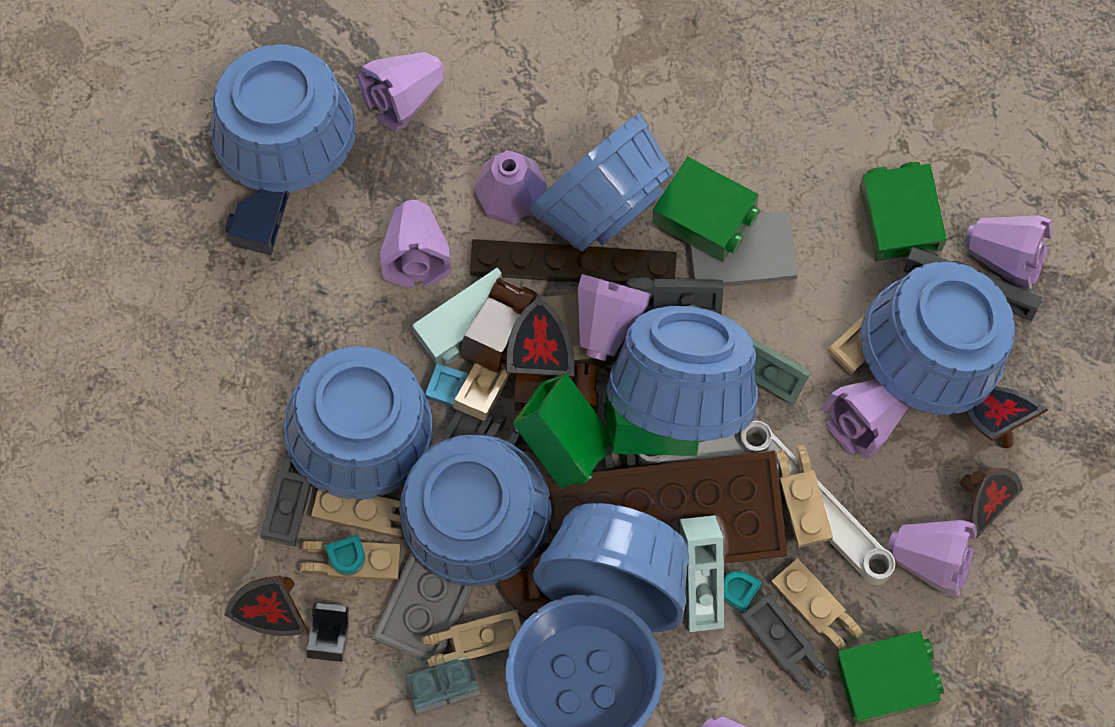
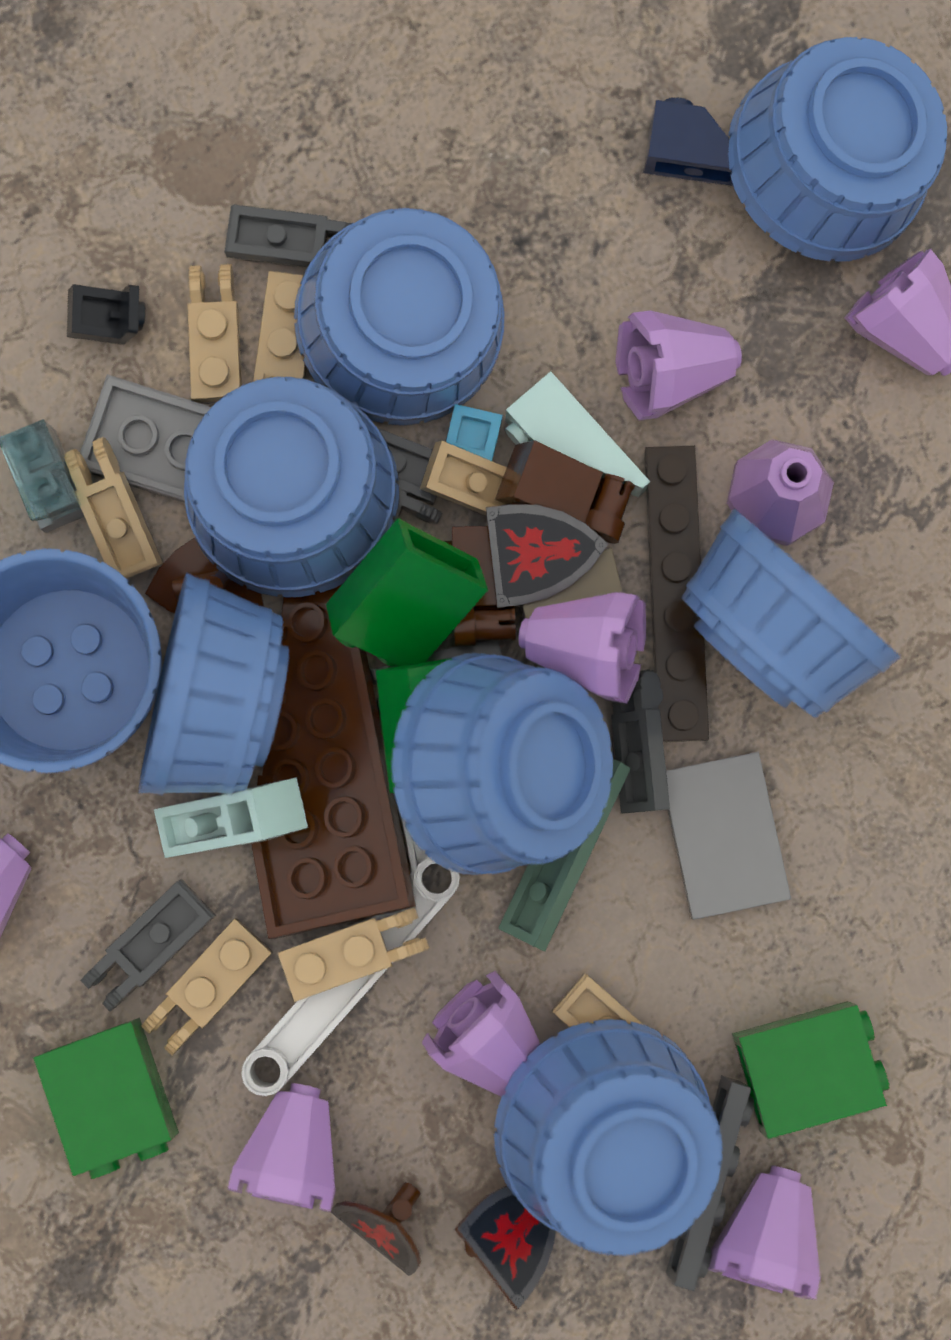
camera: 80 degrees right, 10 degrees up
(267, 607) = (131, 227): shield -> none
(346, 555) = (210, 322): teal tile -> none
(706, 209) = (774, 775): green brick -> none
(740, 590) = (220, 874): teal tile -> none

